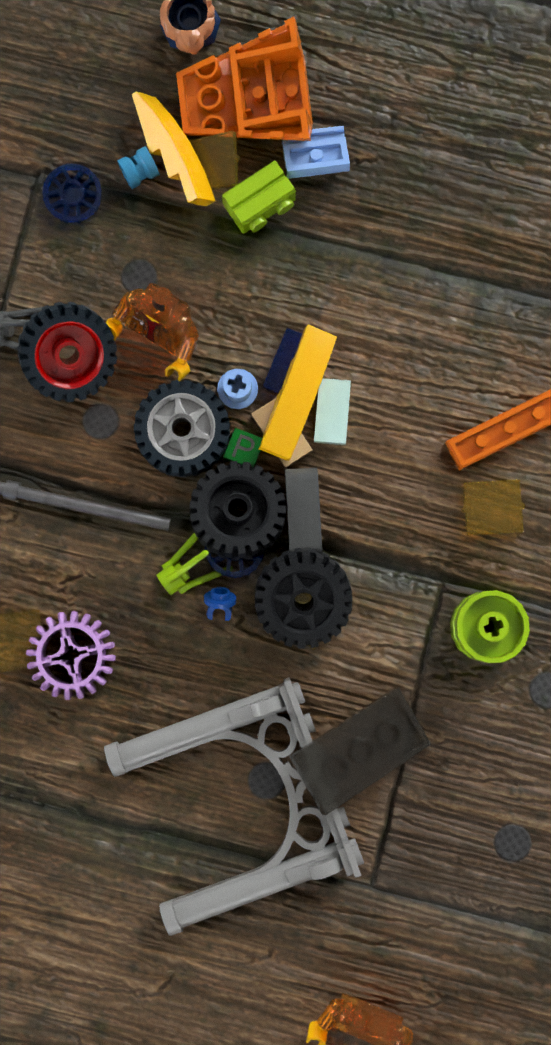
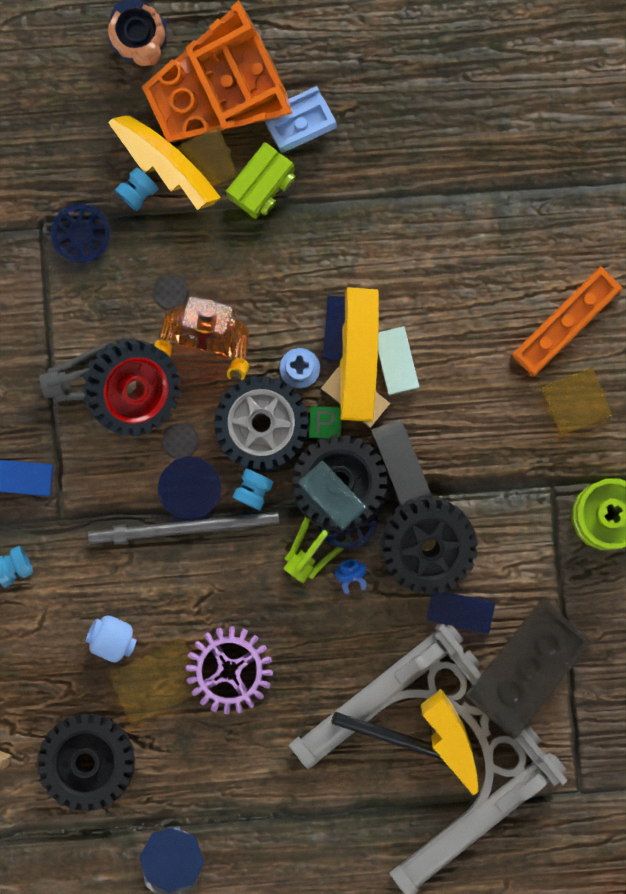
camera: 20 degrees left, 0 degrees up
(93, 468) = (189, 488): none -> clear blue tile
(152, 489) = (254, 482): none -> dark azure wheel
(206, 772) = (384, 734): none -> black bar
(225, 518) = (332, 495): none -> clear light blue tile
(262, 794) = (451, 738): none -> yellow slope
(314, 673) = (461, 611): none -> clear blue tile

